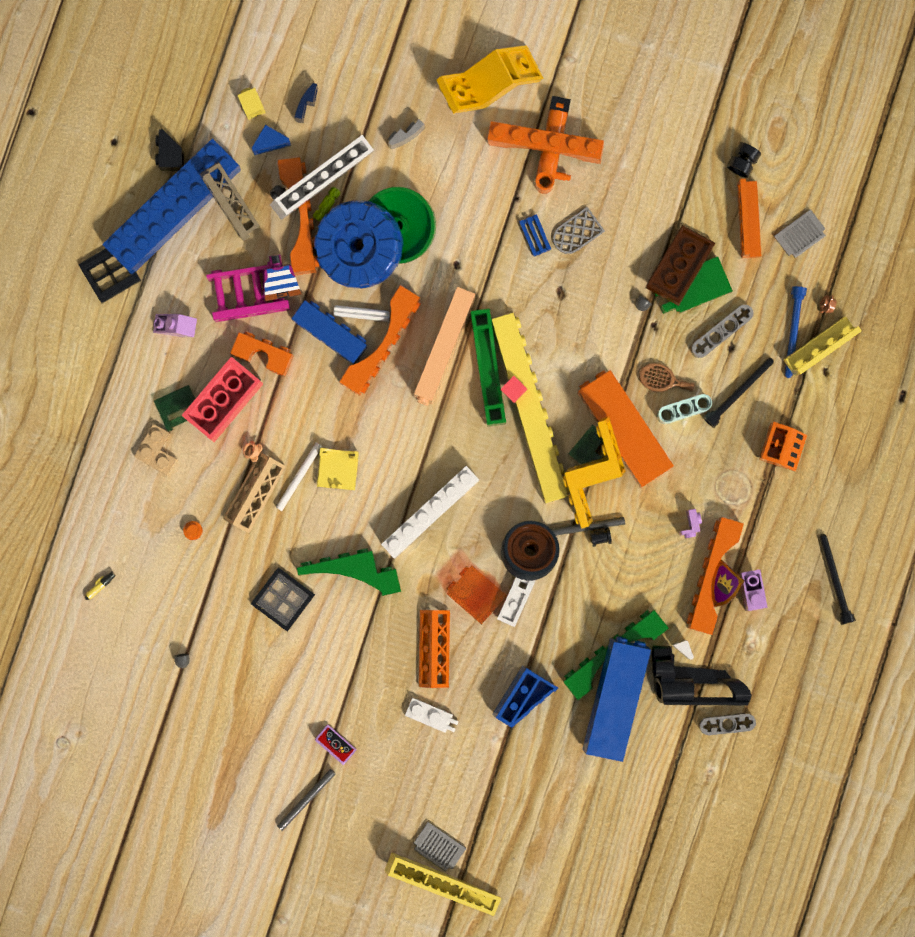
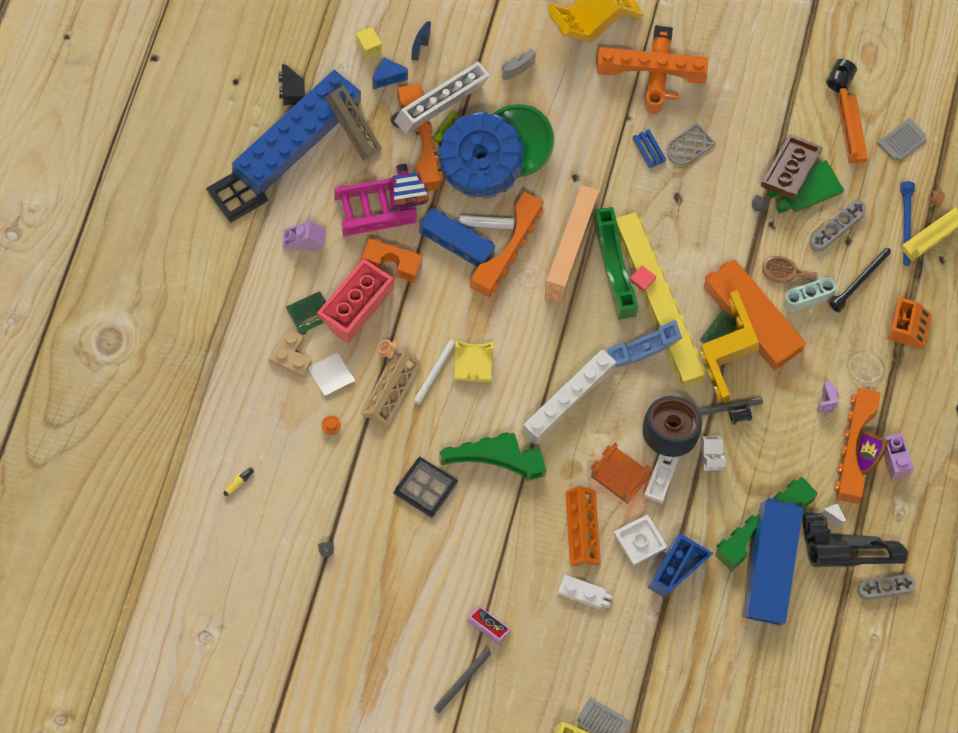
camera: 10 degrees left, 20 degrees down
(196, 474) = (331, 374): none -> white sticker
(489, 665) = (640, 540): none -> white plate
(510, 460) = (646, 346): none -> medium blue slope
(568, 579) = (712, 453): none -> white brick

